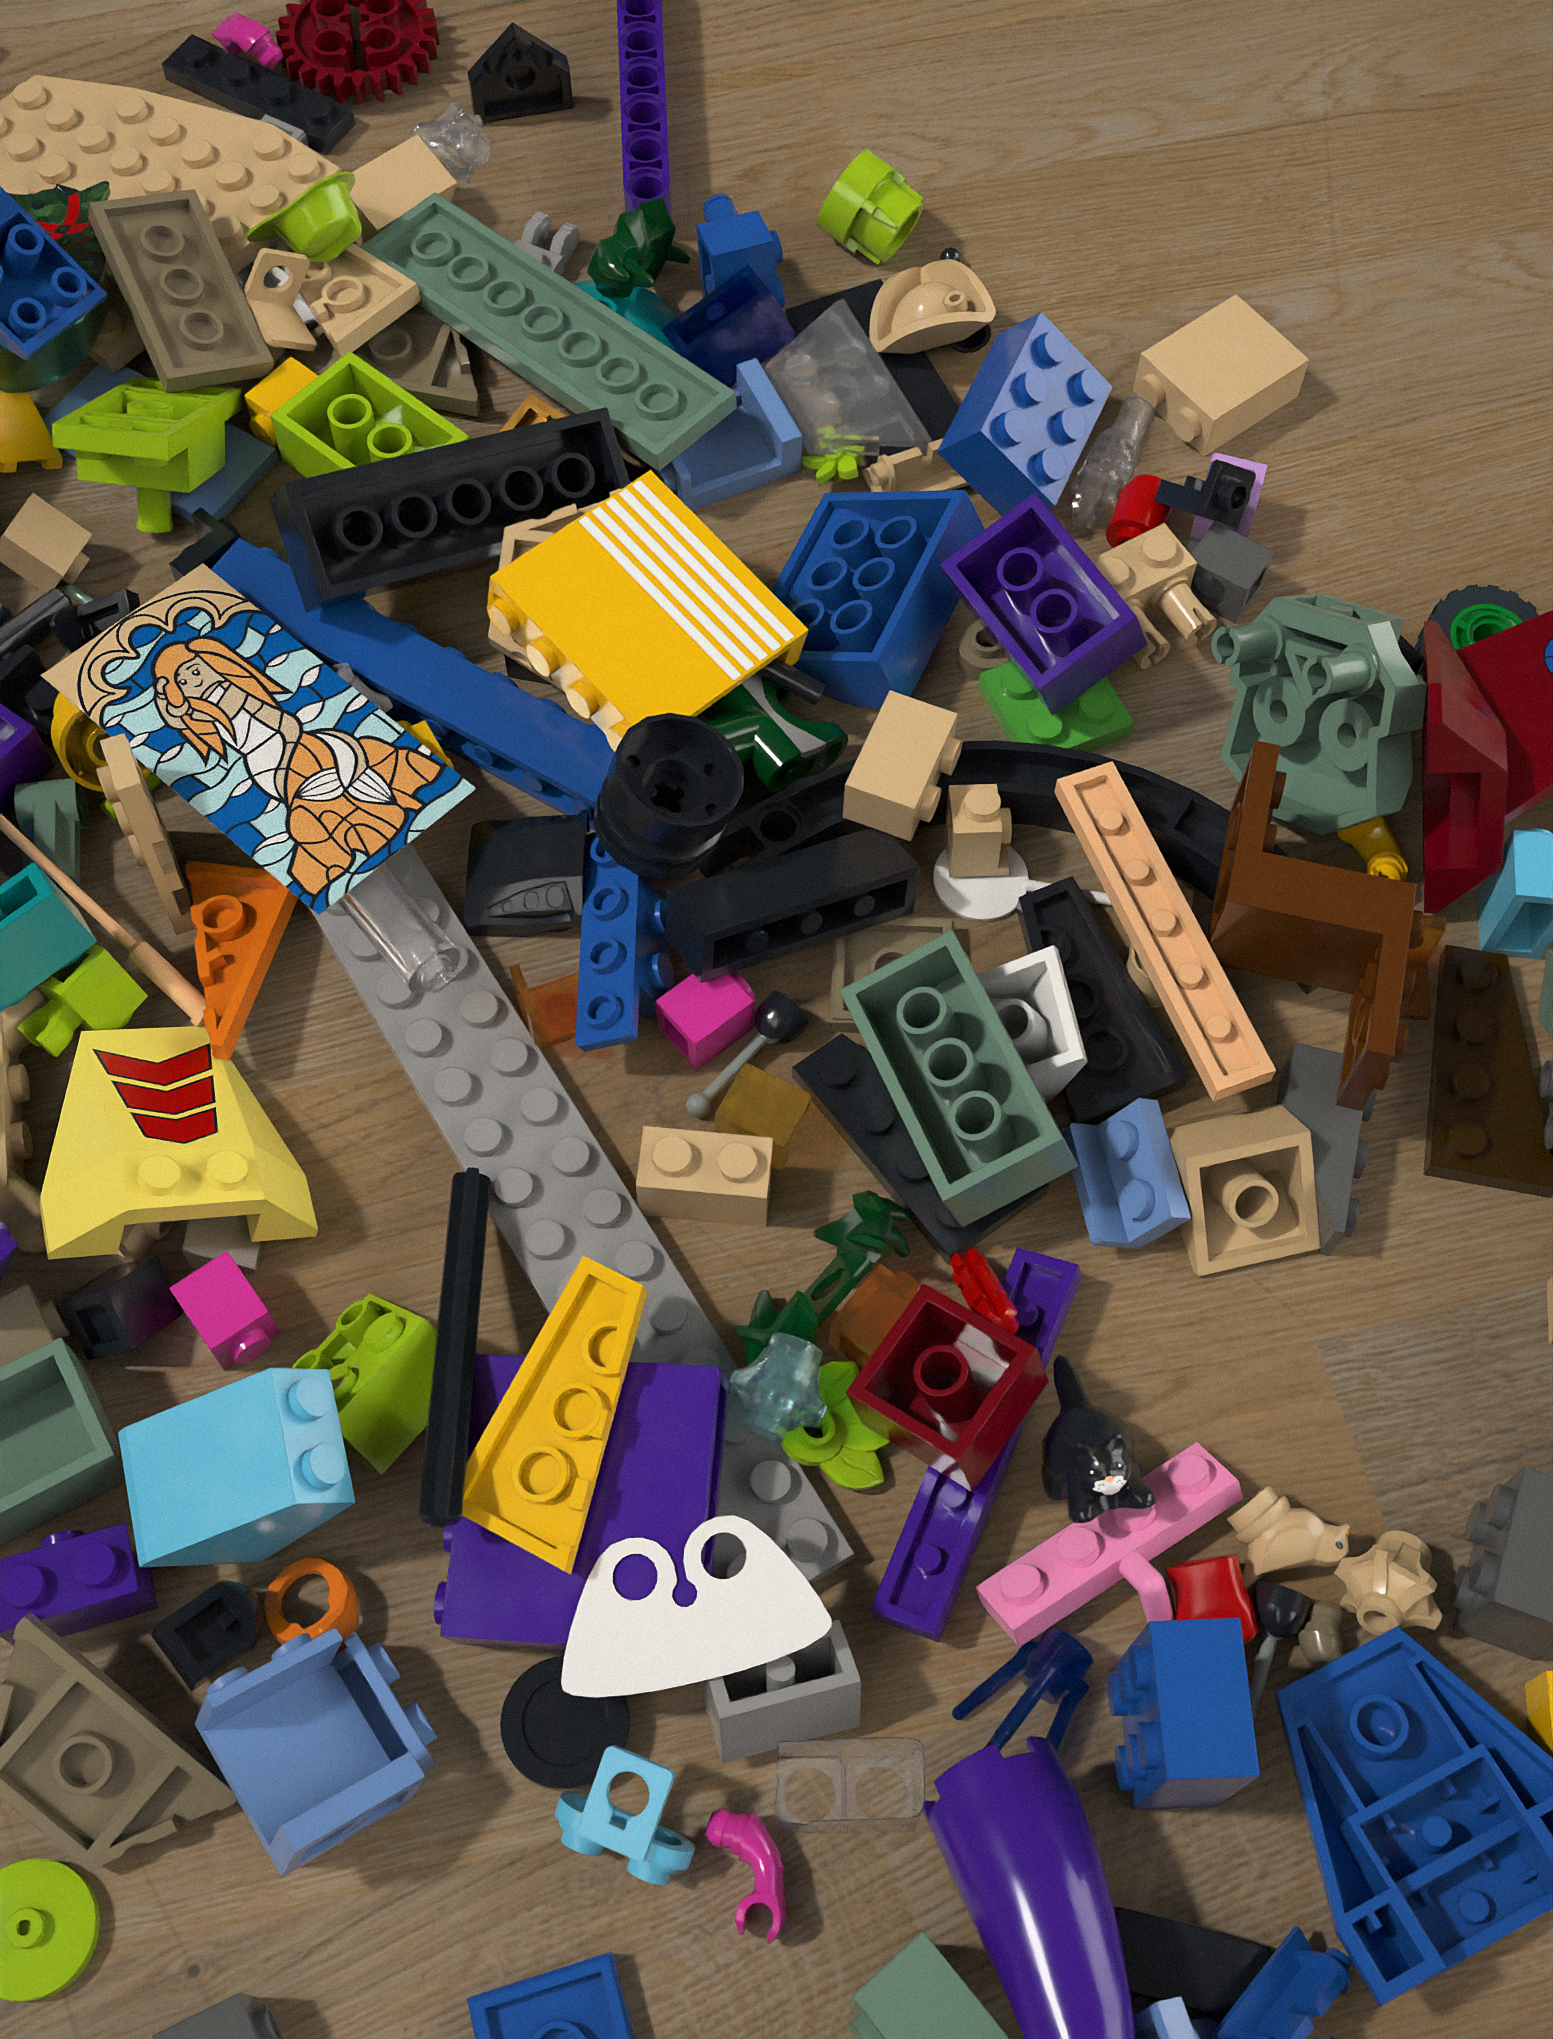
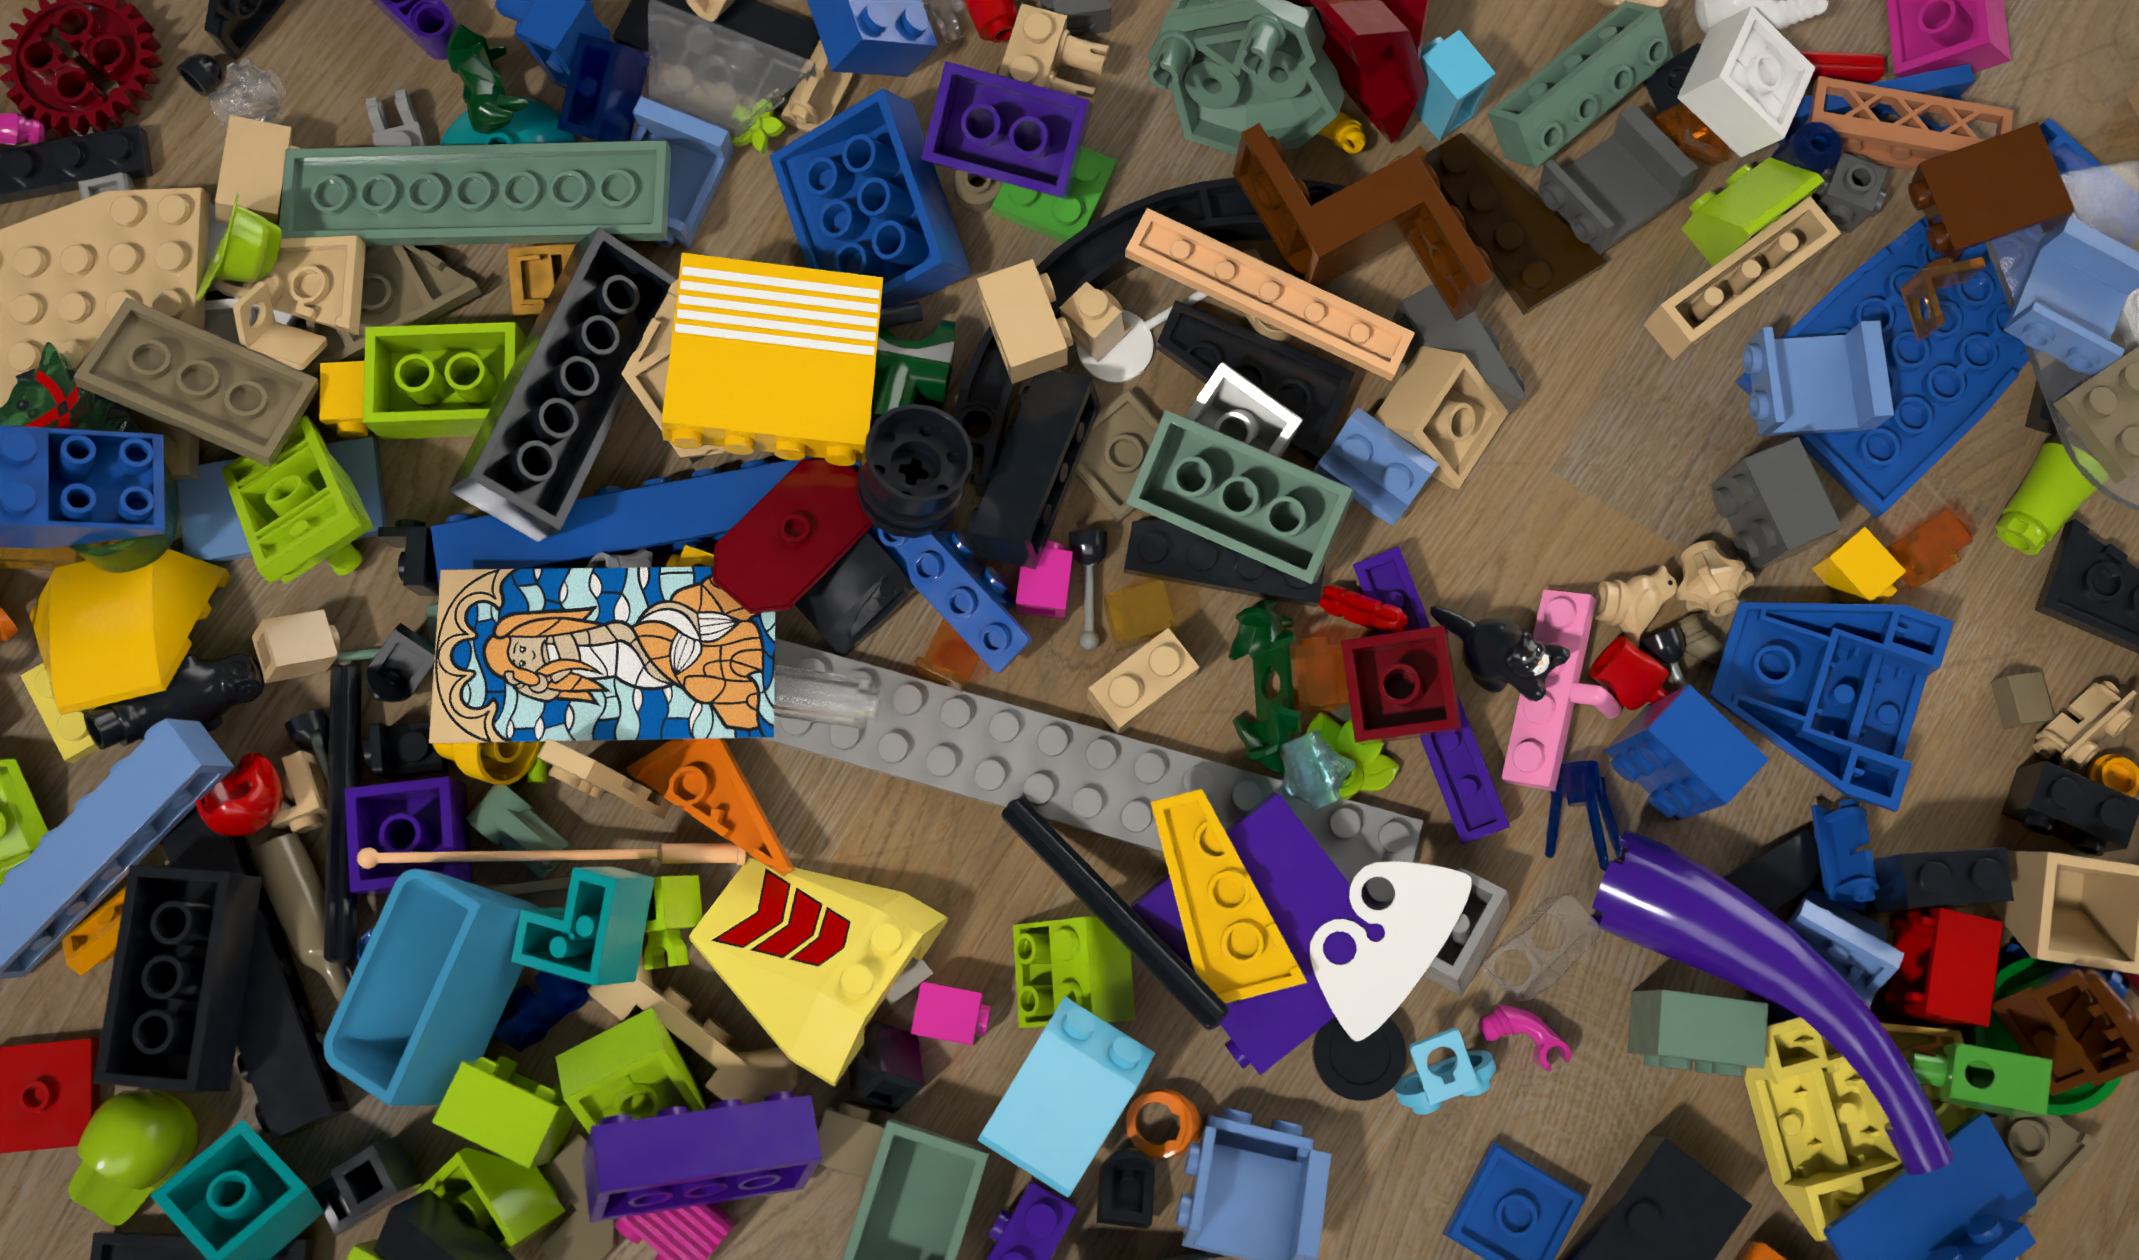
camera: 45 degrees left, 15 degrees up
(434, 102) = (201, 73): none -> black hinge
(509, 777) = (790, 537): none -> dark red shield

